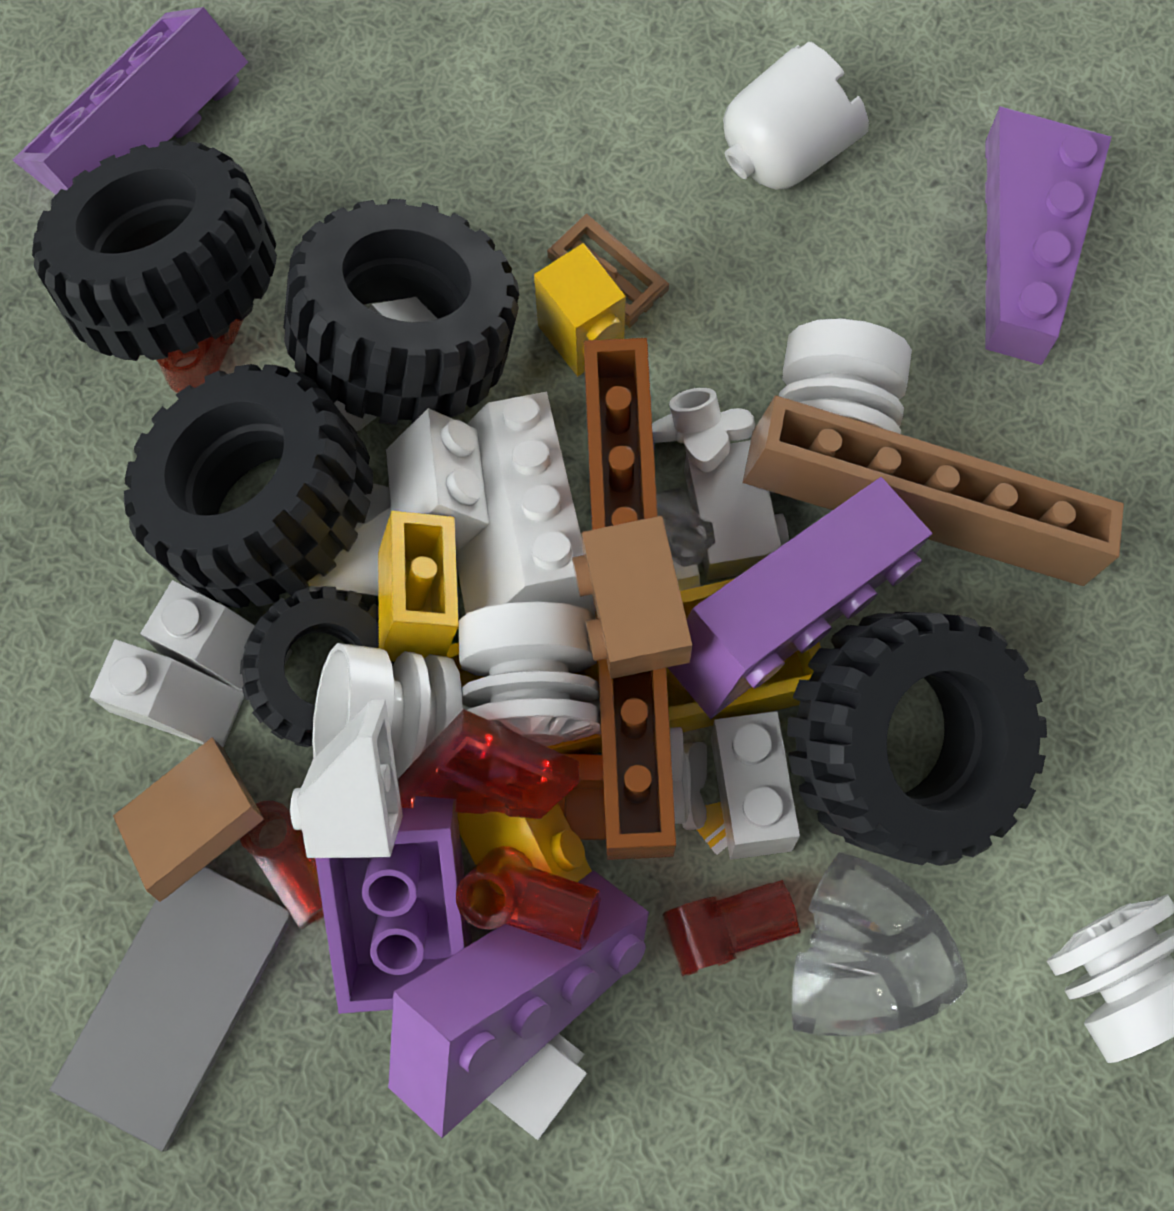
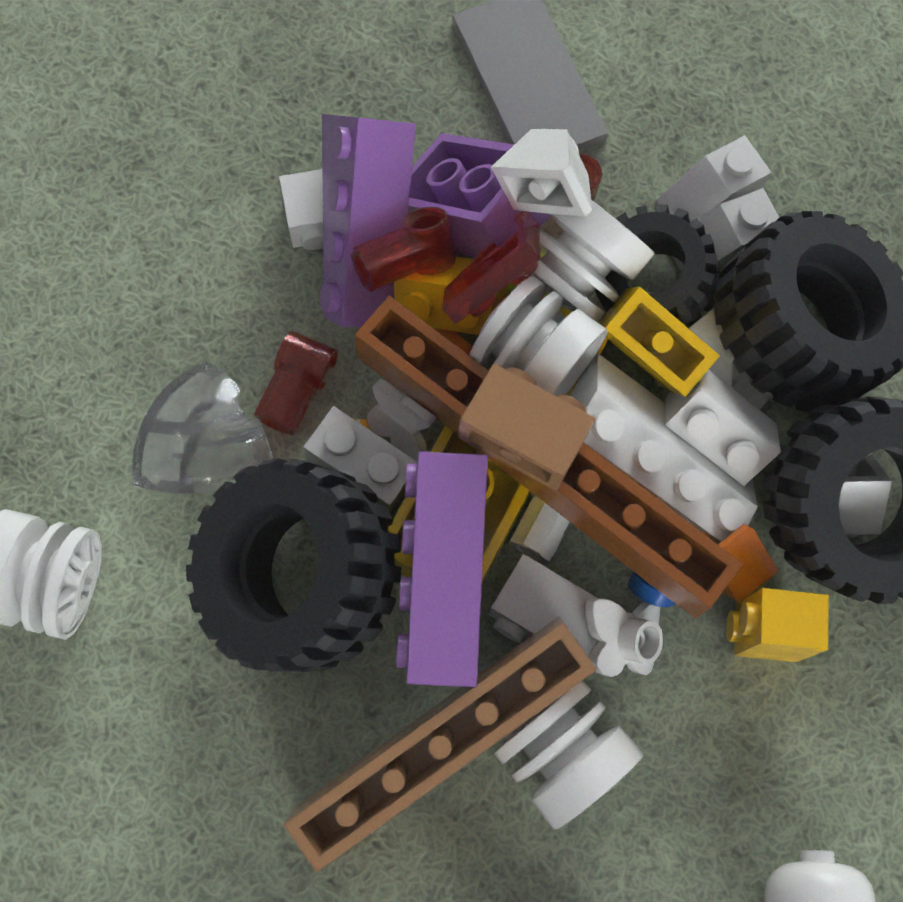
camera: 125 degrees right, 0 degrees up
(186, 819) = (625, 141): medium nougat tile -> none
(555, 381) = (756, 561): none -> orange panel
(641, 301) = (759, 697): medium nougat tile -> none
(686, 531) = (568, 550): clear piece -> none

